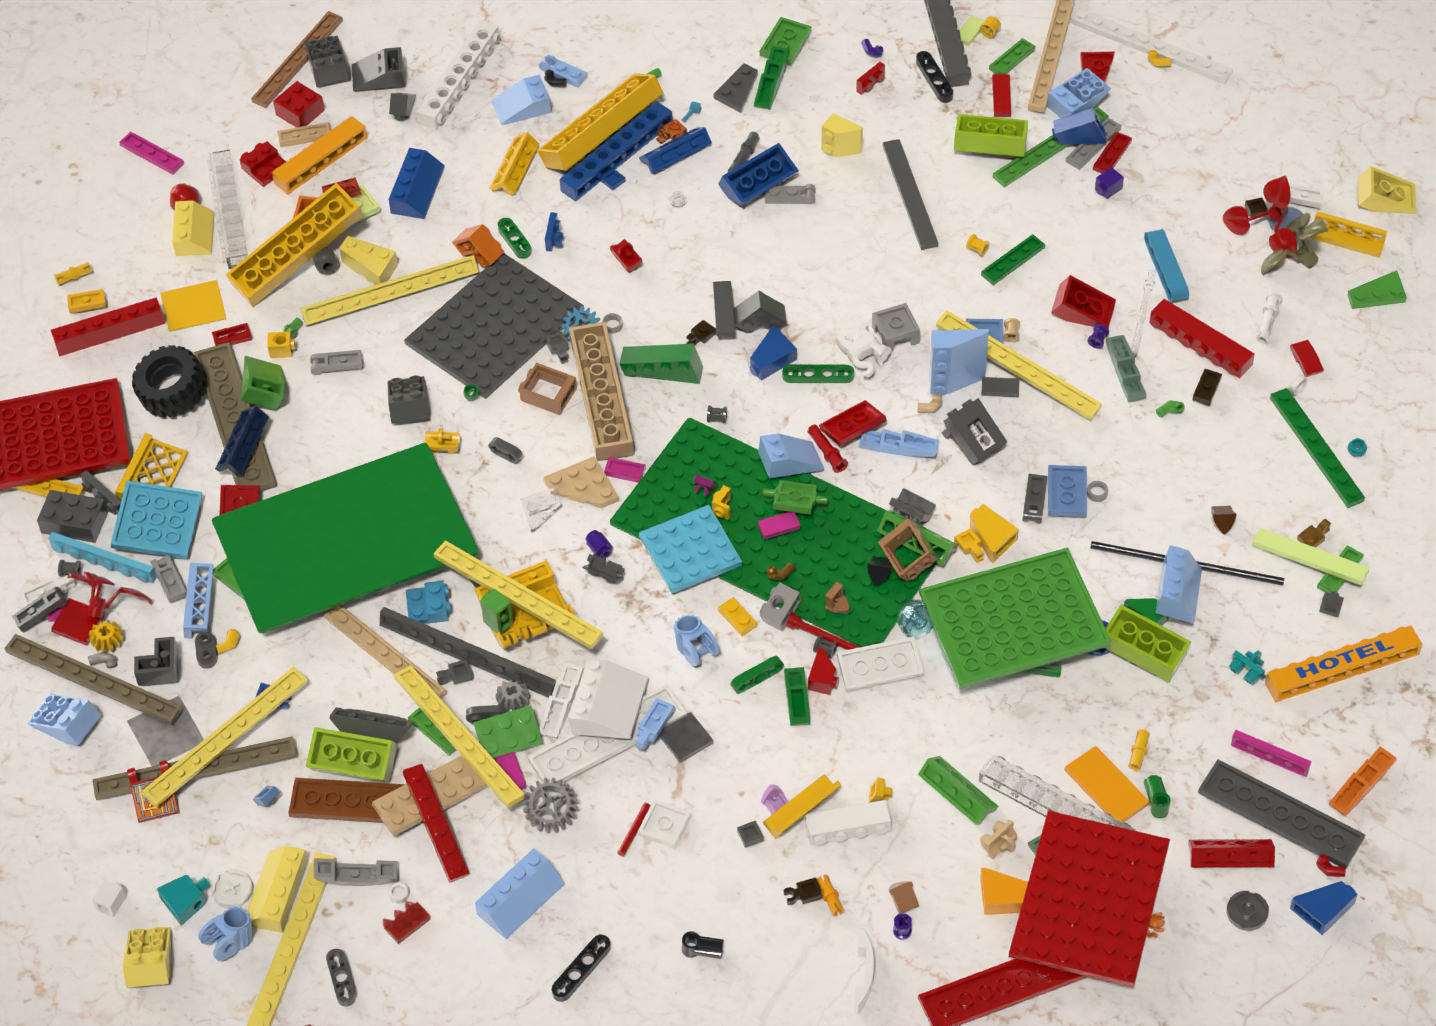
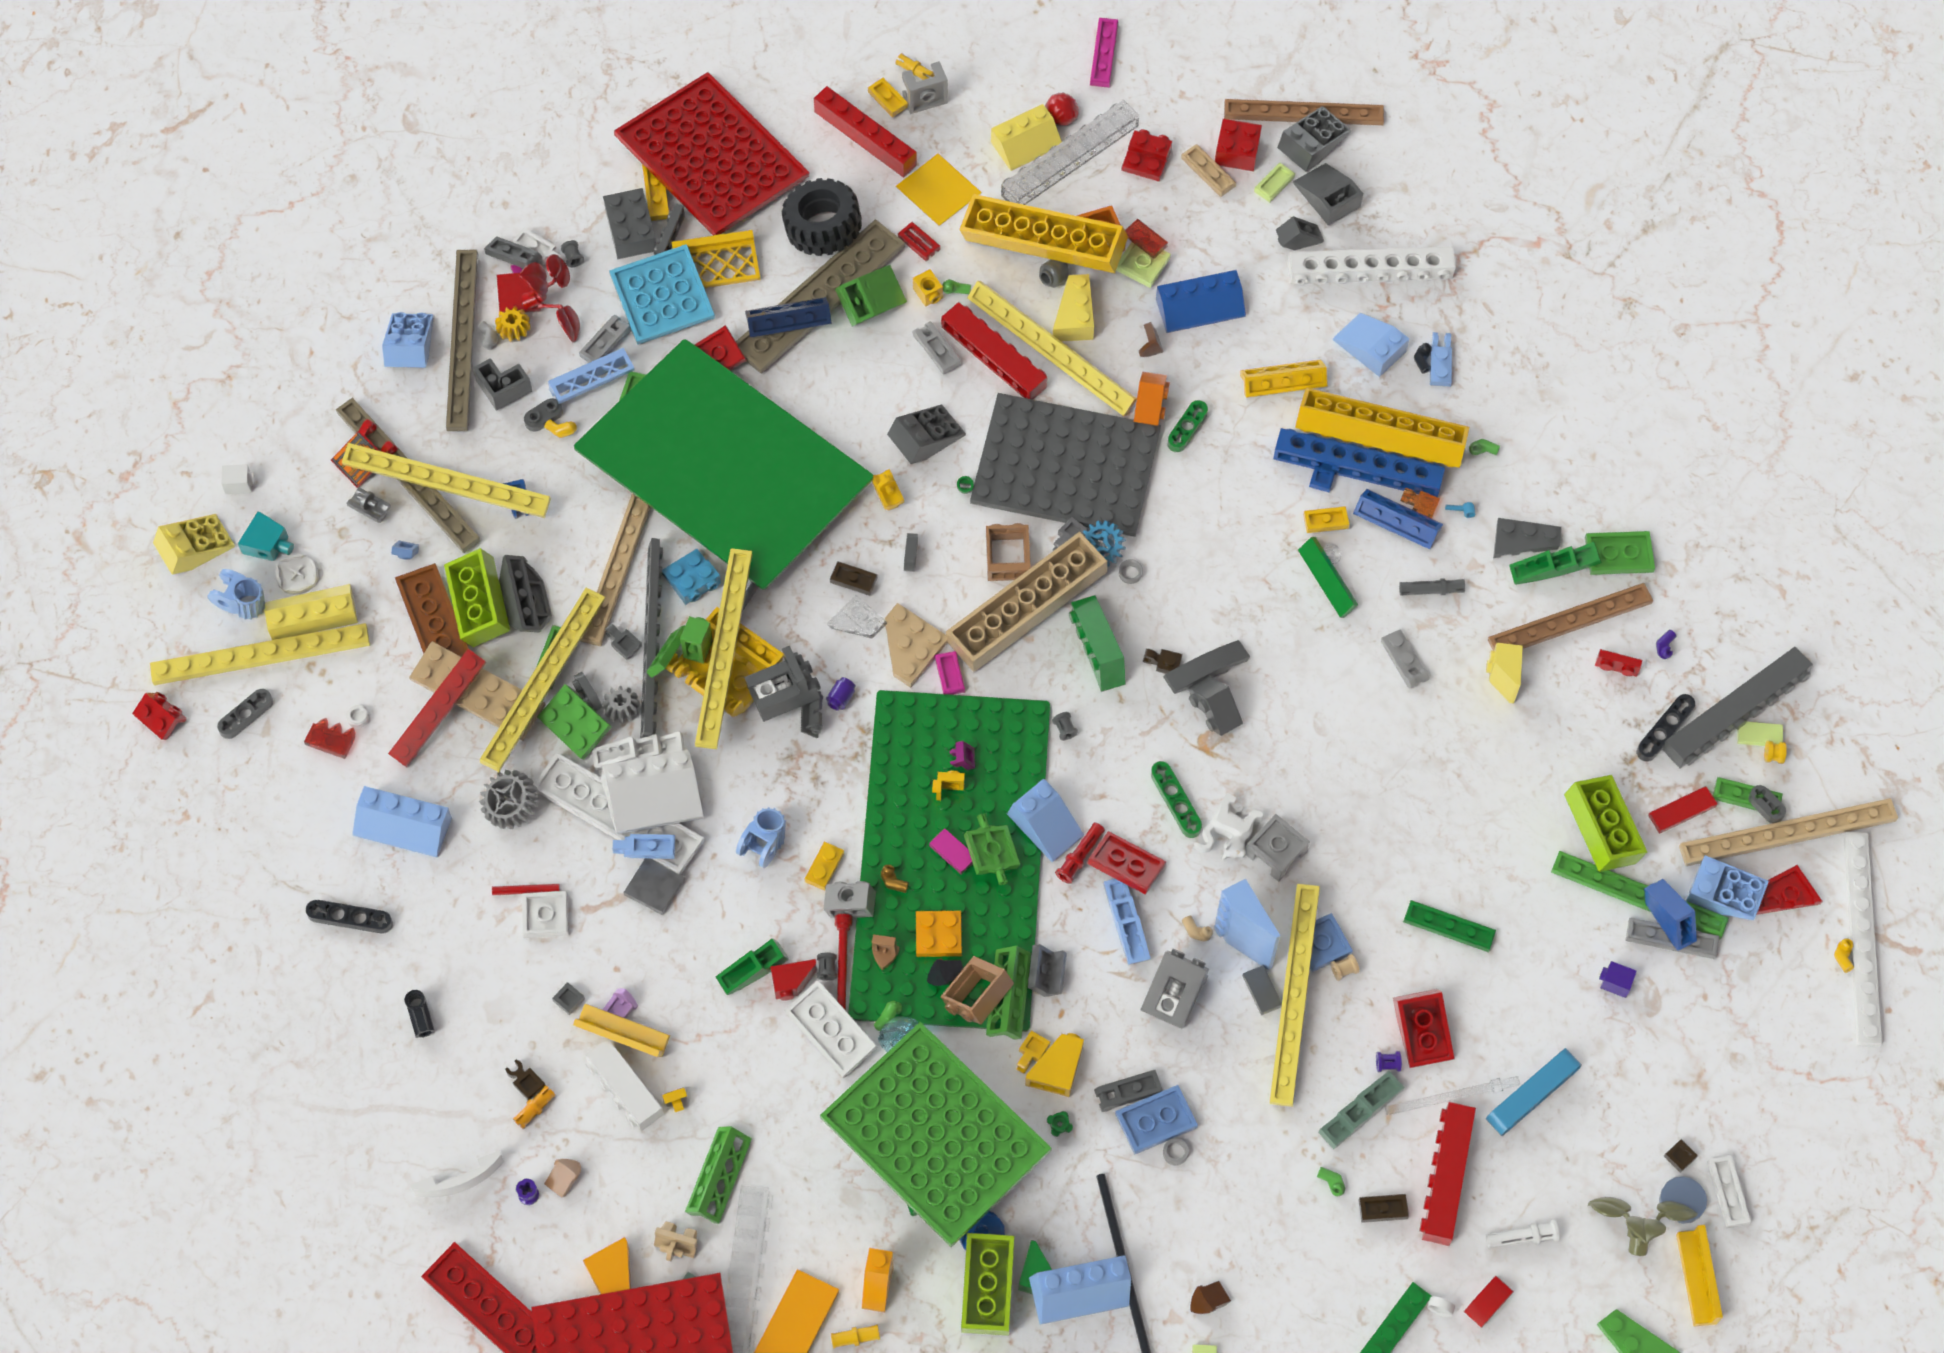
camera: 60 degrees right, 10 degrees up
(102, 557) = (596, 266): medium azure plate -> none
(105, 269) = (927, 92): none -> light grey panel
(165, 741) = (429, 435): flat silver sticker -> none
(206, 805) = (369, 505): none -> flat silver hips
(319, 155) = (1186, 197): light orange brick -> none
(344, 101) = (1274, 182): none -> yellowish green tile
(355, 874) = (357, 666): light grey slope -> none
(367, 326) = (994, 351): none -> red brick
(428, 225) = (1154, 345): none -> reddish brown tile
(490, 639) = (666, 652): none -> bright green tile
(502, 496) = (853, 578): none -> dark brown plate
(511, 767) = (535, 747): dark pink tile -> none
(551, 233) = (1212, 456): blue plate -> none
(578, 558) = (777, 682): none -> dark grey brick
(626, 255) = (1221, 540): red hips -> none
(649, 189) = (1326, 519): none -> yellow plate
(690, 549) = (878, 781): medium azure plate -> none
(696, 208) = (1327, 577): none -> green tile
(757, 674) = (759, 917): green beam -> none
(758, 175) = (1404, 615): blue slope -> none
(772, 354) = (1172, 741): blue slope -> none
(818, 91) = (1575, 618): none -> medium nougat tile
(841, 562) = (938, 933): none -> light orange plate
(891, 621) = (889, 1012): none -> bright green arm
(910, 194) = (1478, 779): dark grey tile -> none
(977, 244) = (1445, 880): yellow bush -> none
(1027, 47) = (1767, 804): none -> dark grey beam
(1036, 547) = (1059, 1117): none -> green plate
(1104, 711) = (877, 1279): none -> light orange slope
(1112, 152) = (1669, 964): red tile -> none
(1276, 192) = (1679, 1178): red plant -> none
(1386, 192) = (1793, 1296): light yellow slope -> none

